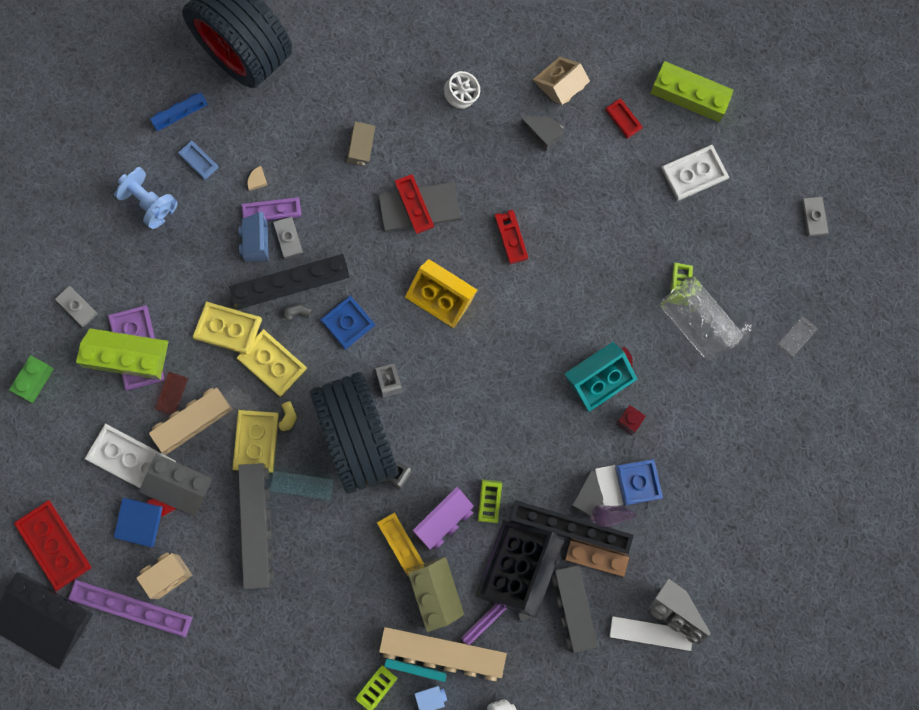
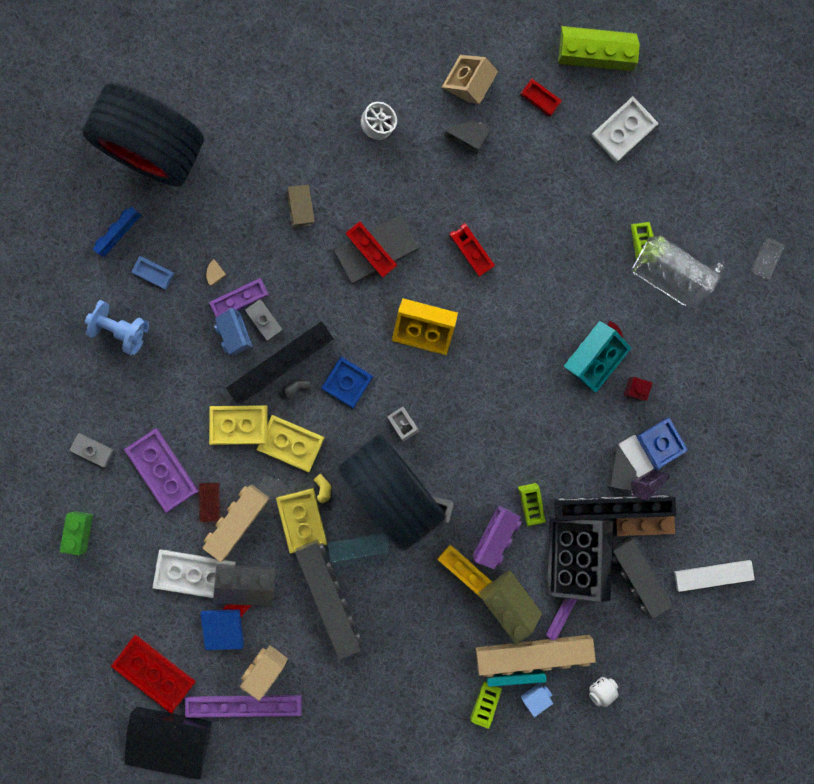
camera: 15 degrees left, 10 degrees up
(122, 353) = (150, 481): lime slope -> none
(679, 611) = (736, 551): light grey slope -> none
(815, 216) = (750, 135): light grey plate -> none

